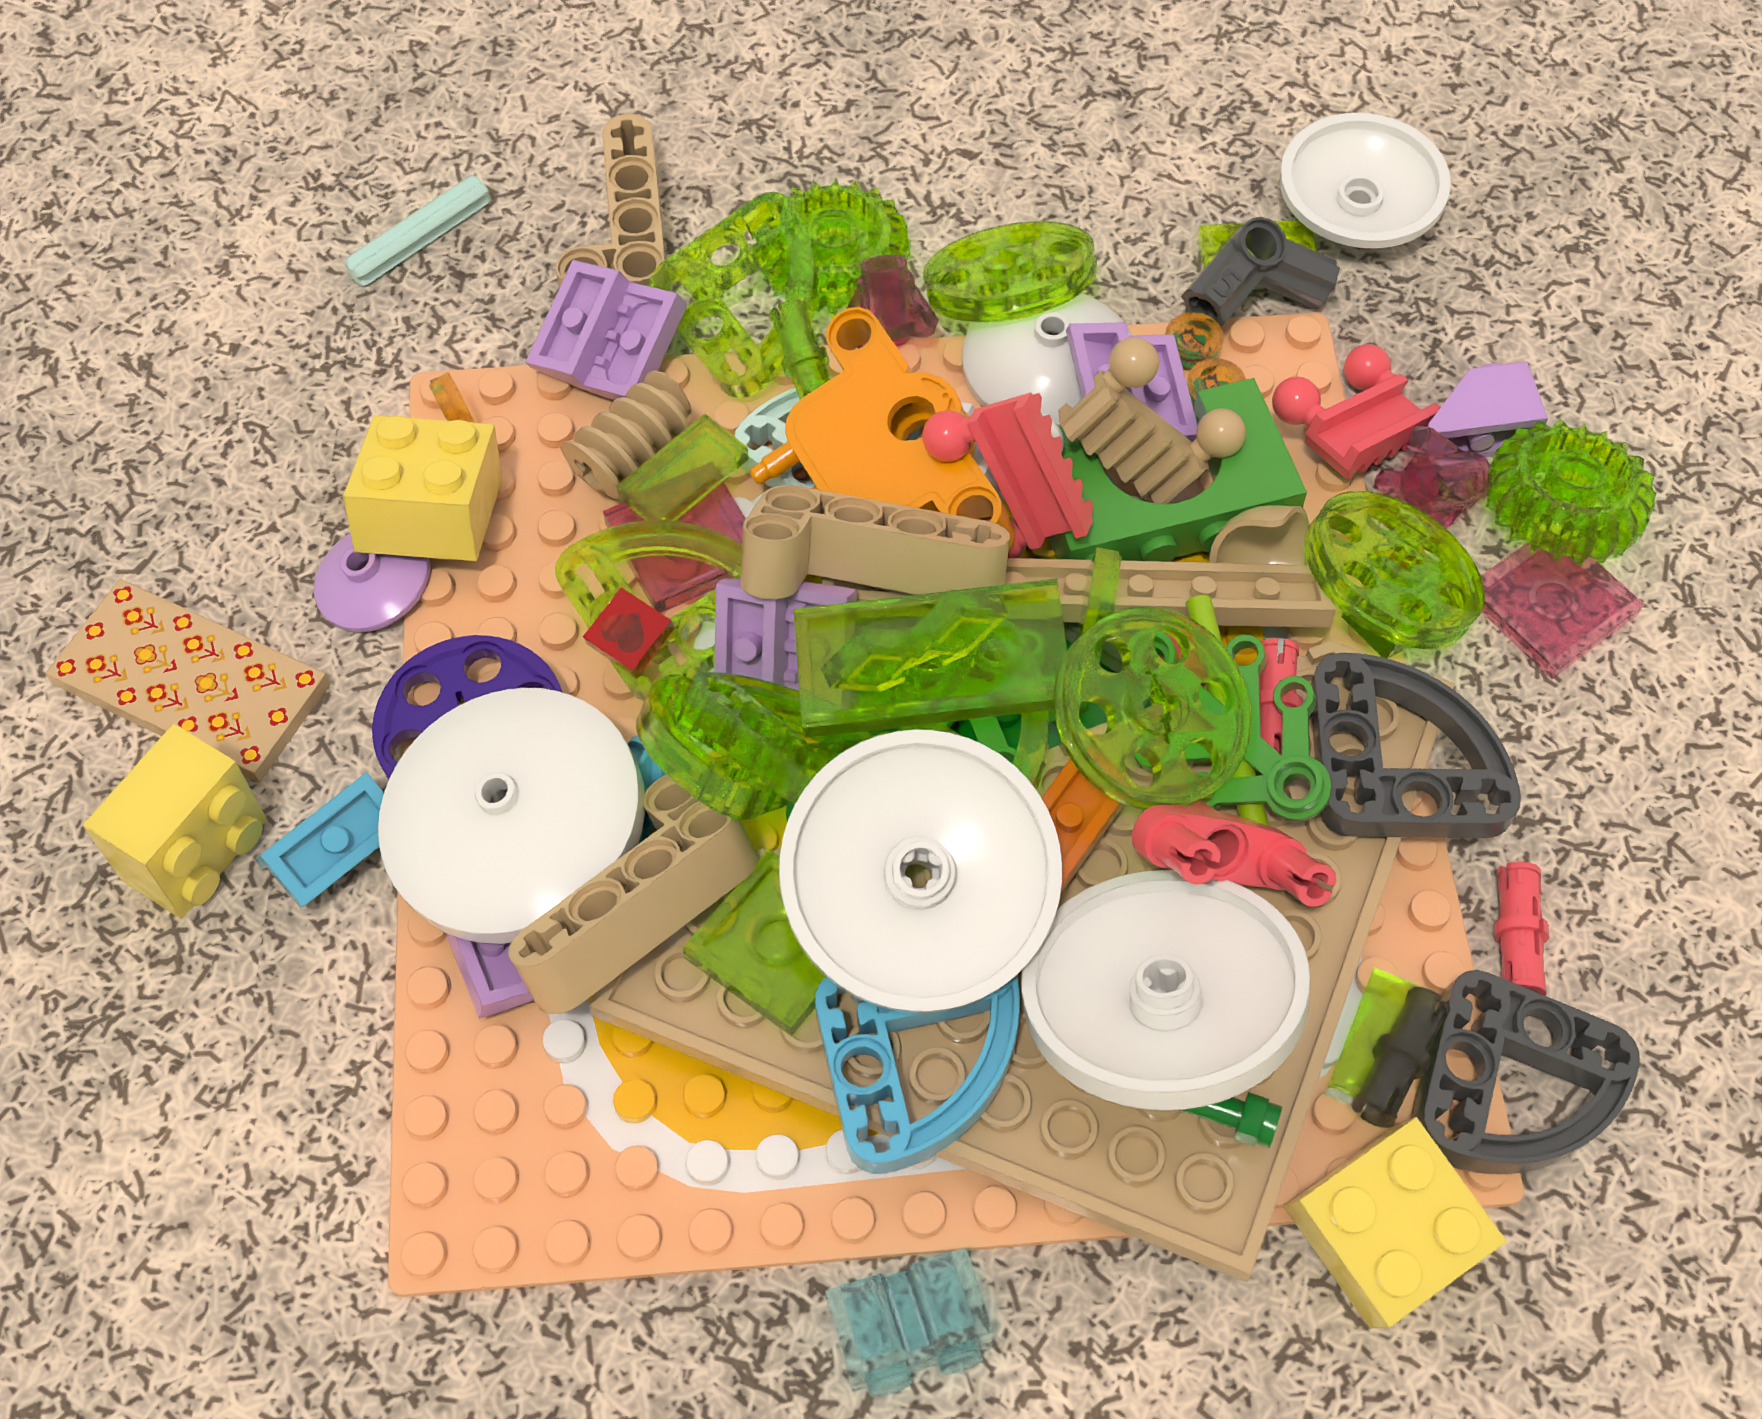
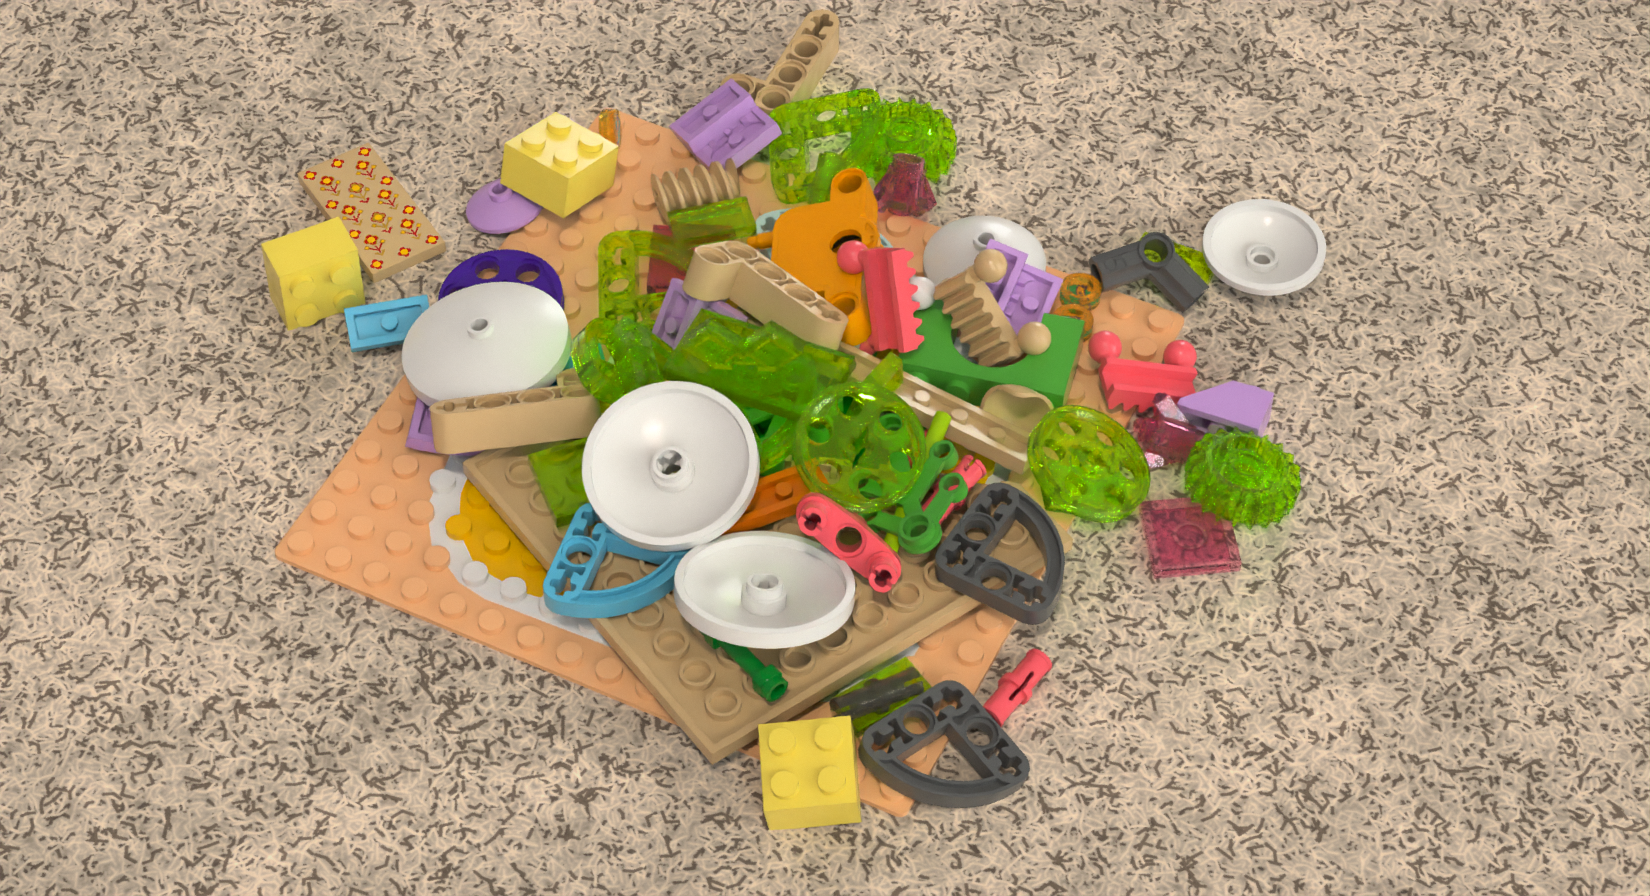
camera: 30 degrees right, 10 degrees down
(417, 230) = (665, 27): light aqua axle -> none
(629, 632) = (616, 289): tile -> none
(910, 1323) = (522, 693): clear light blue brick -> none
(1010, 271) = (994, 201): clear neon green wedge -> none

